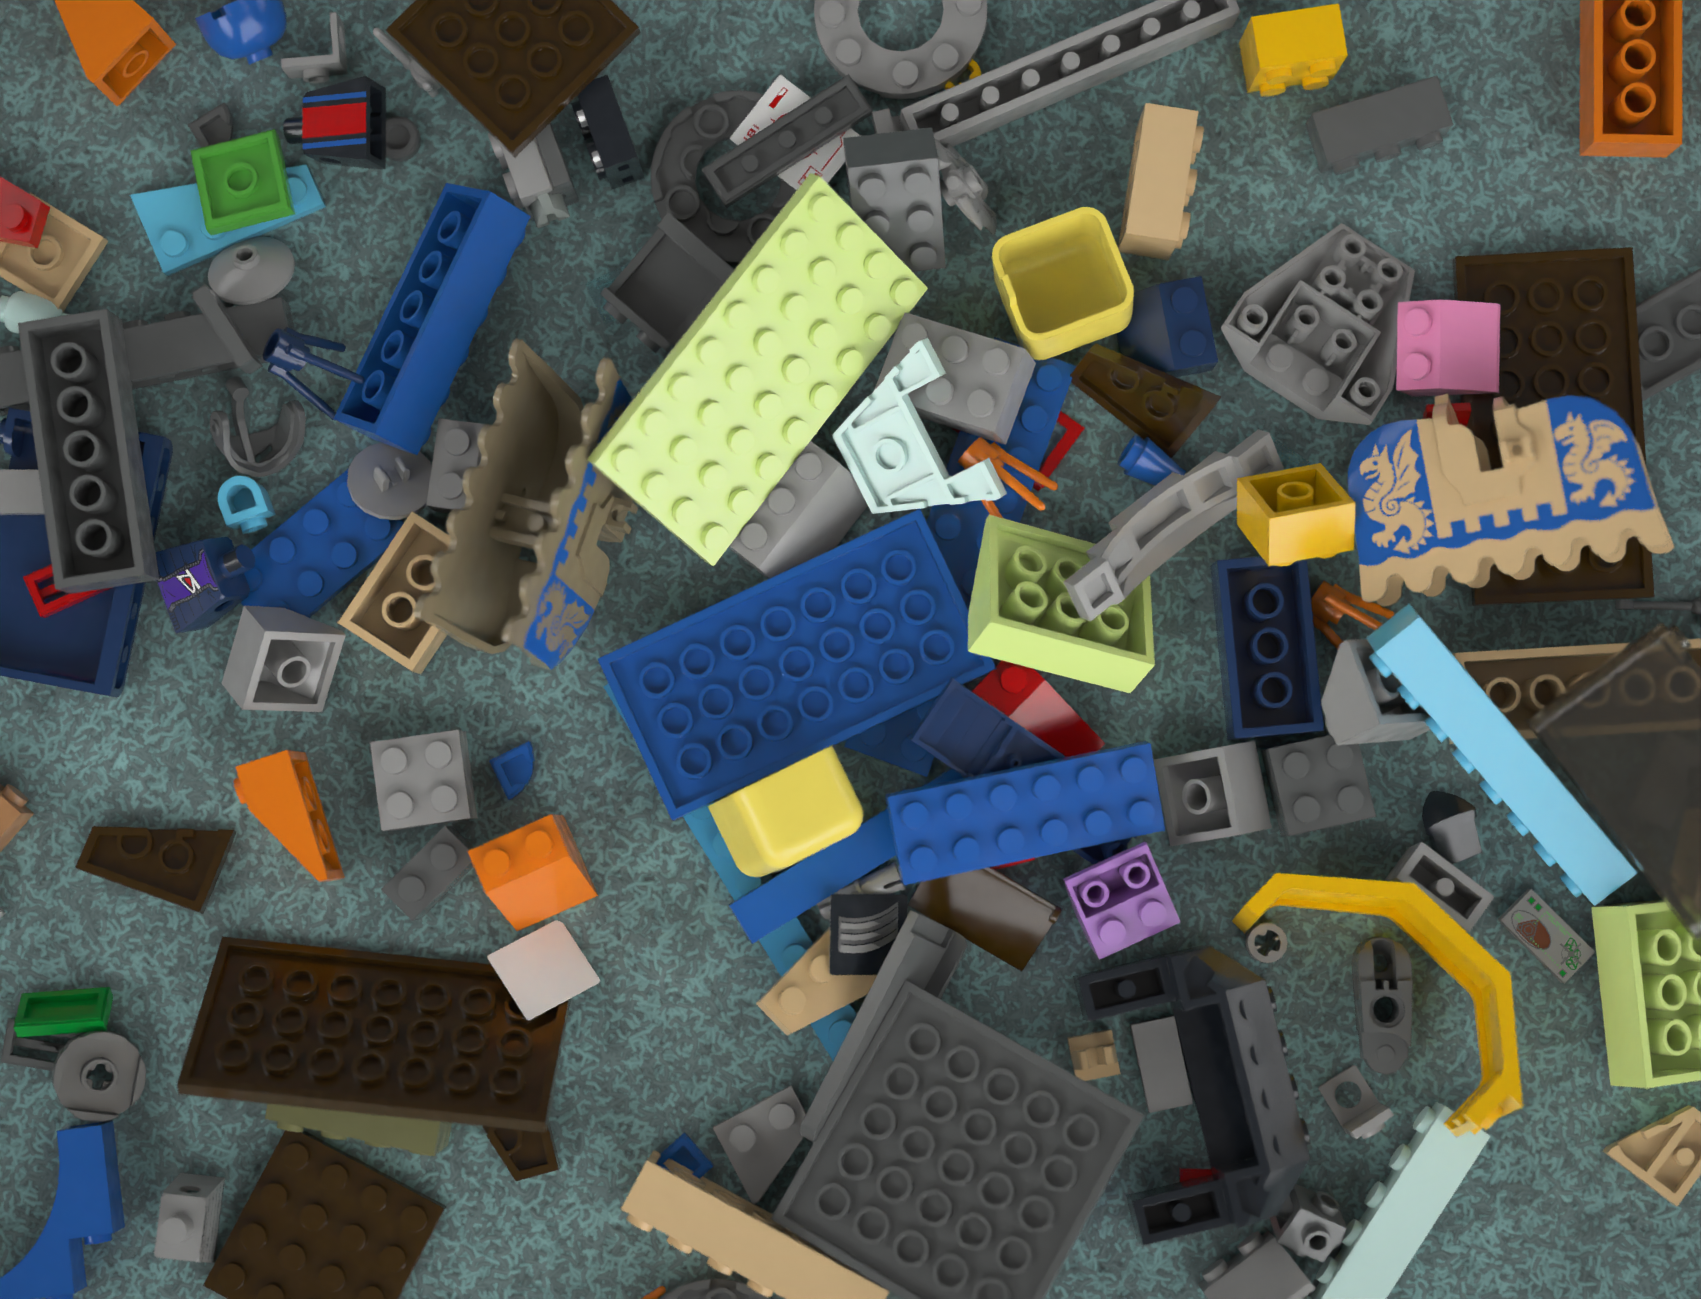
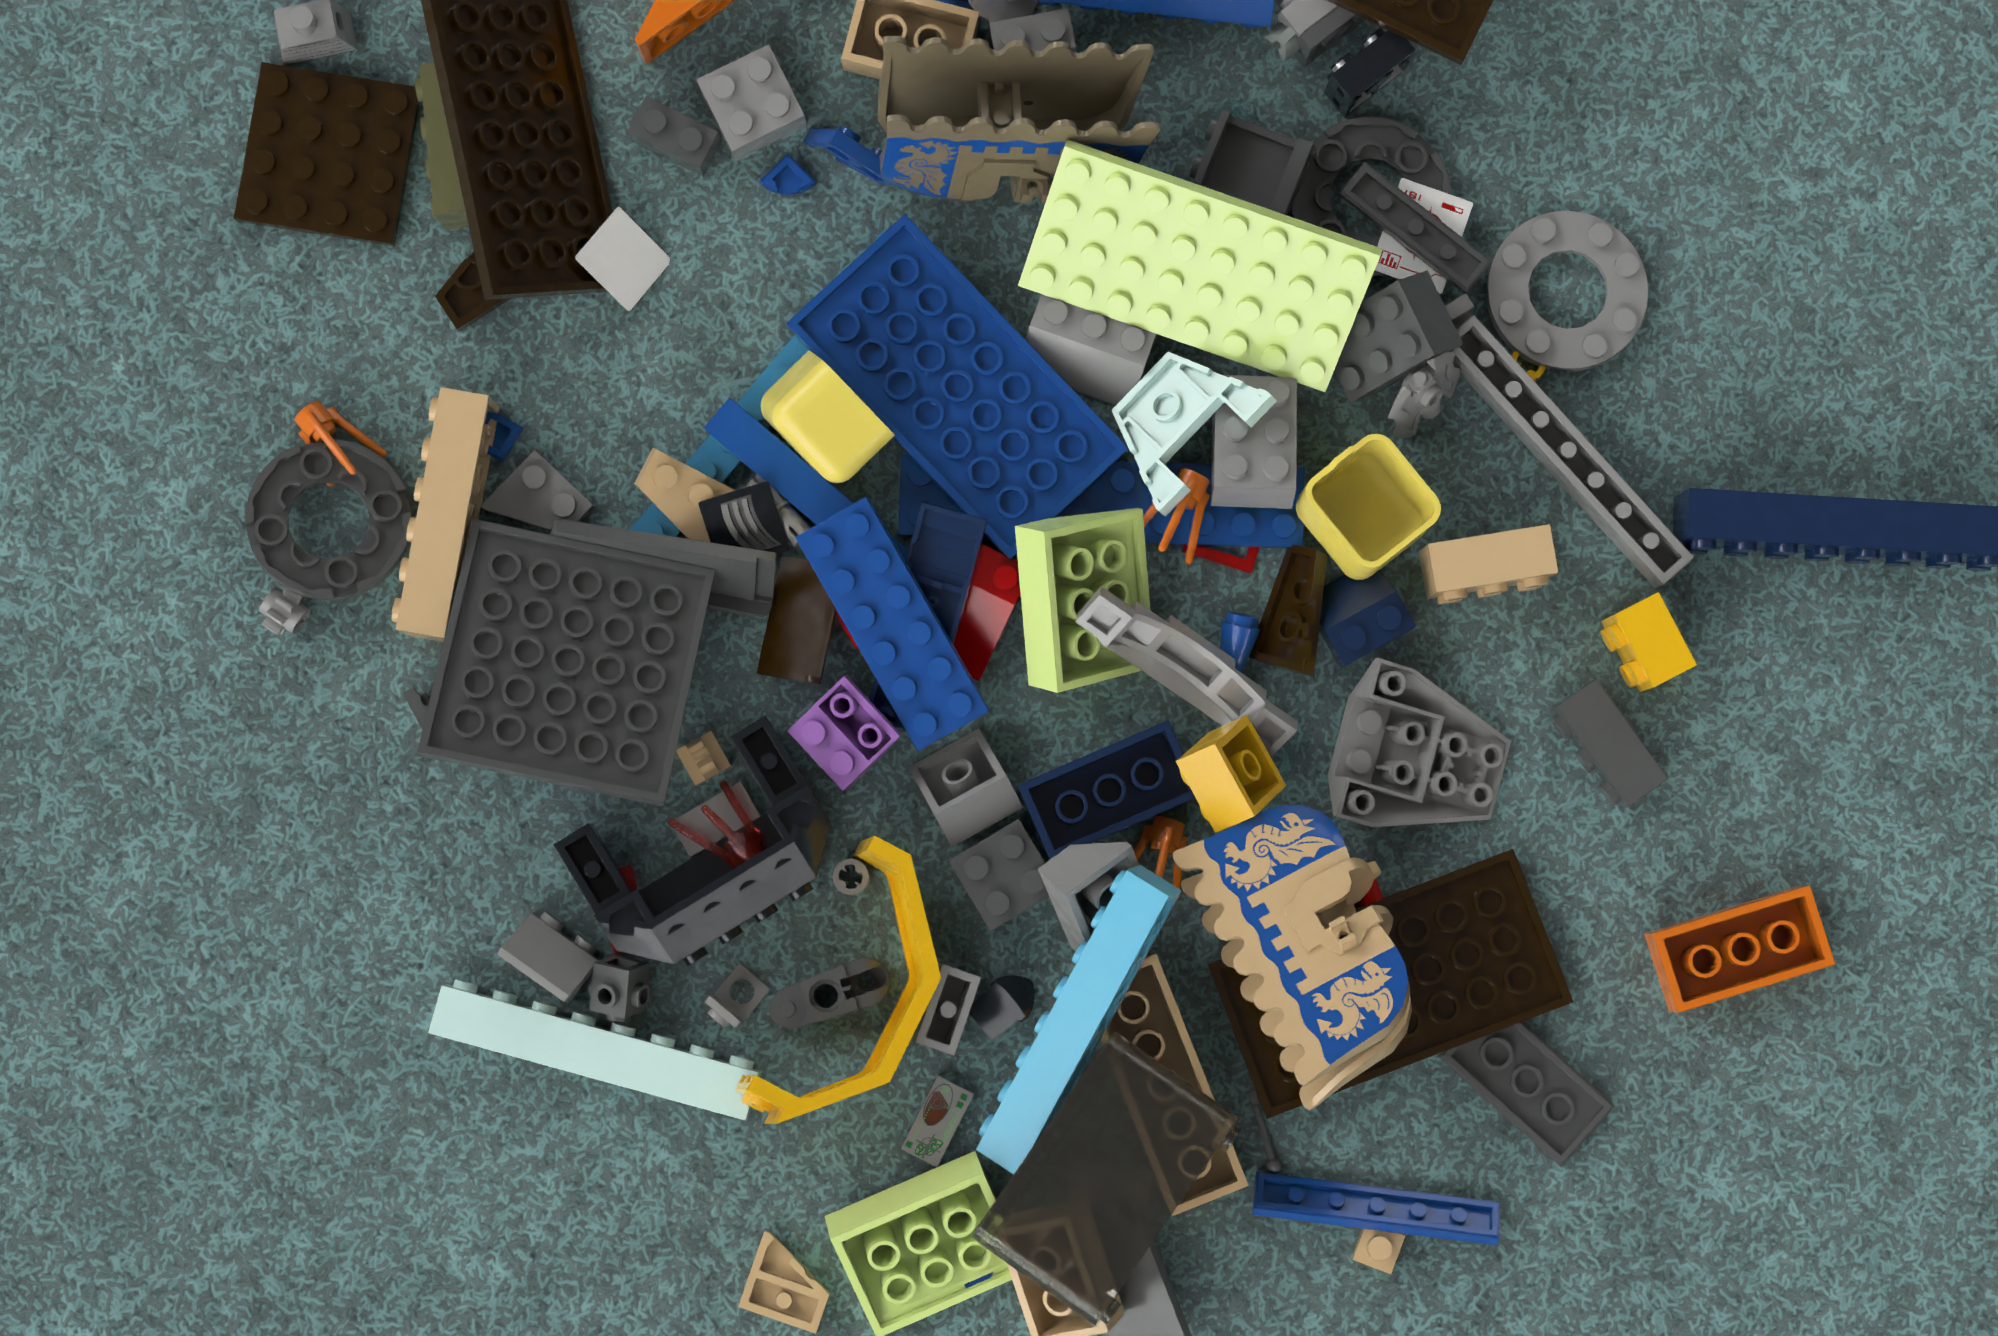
camera: 65 degrees right, 0 degrees up
(508, 696) = (848, 151): none -> blue wing
(533, 871) = (704, 221): orange slope -> none
(1205, 1045) = (741, 845): none -> clear red plant
(1447, 347) = (1426, 864): bright pink slope -> none

